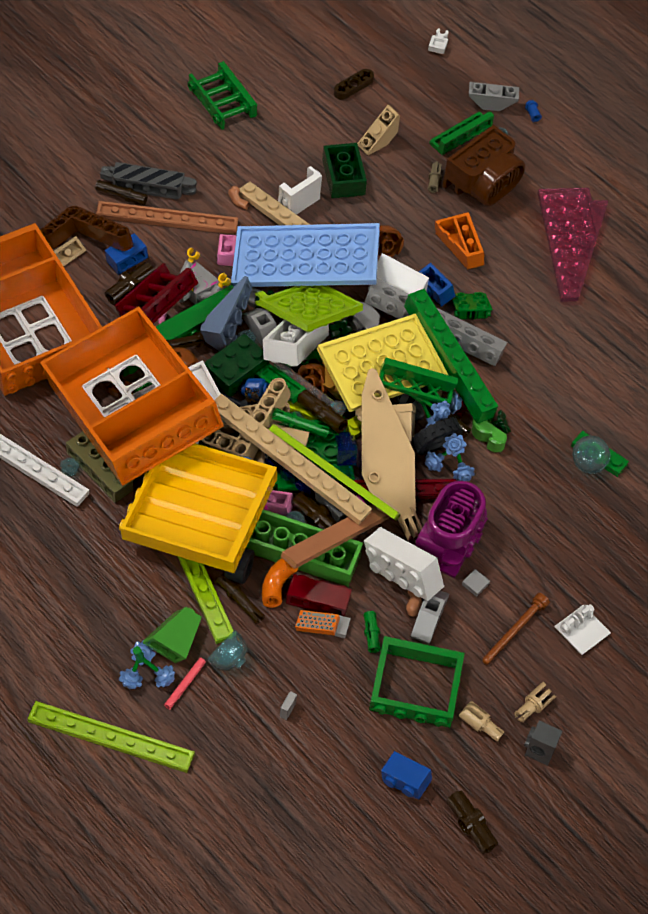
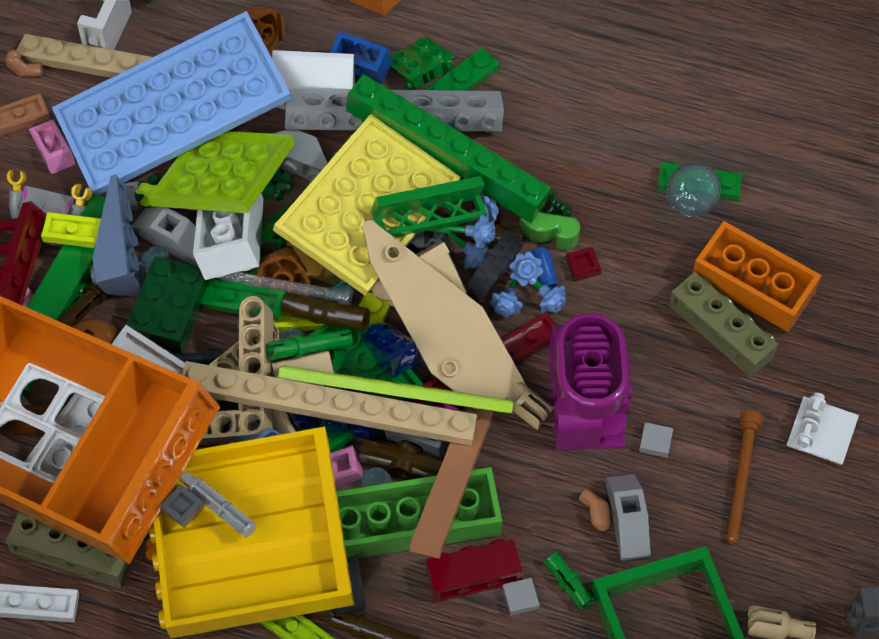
camera: 25 degrees left, 5 degrees up
(69, 470) = (28, 577): clear light blue plate -> none
(169, 468) = (182, 506): none -> dark grey plate
(190, 478) = (219, 505): none -> light grey piece
(204, 295) = (70, 230): none -> neon yellow plate
(254, 389) = (215, 326): blue head -> none
(274, 582) = (405, 583): orange cylinder -> none
(317, 622) = (494, 608): tile -> none
(404, 563) = (562, 468): white brick -> none
(470, 453) = (548, 276): none -> blue cone
(496, 464) = (583, 264): none -> dark red tile
(497, 325) = (468, 73): none -> green plate
(534, 703) = (827, 561): tan arm -> none
(559, 539) = (723, 324): none -> olive brick
(597, 521) = (757, 276): none -> orange brick

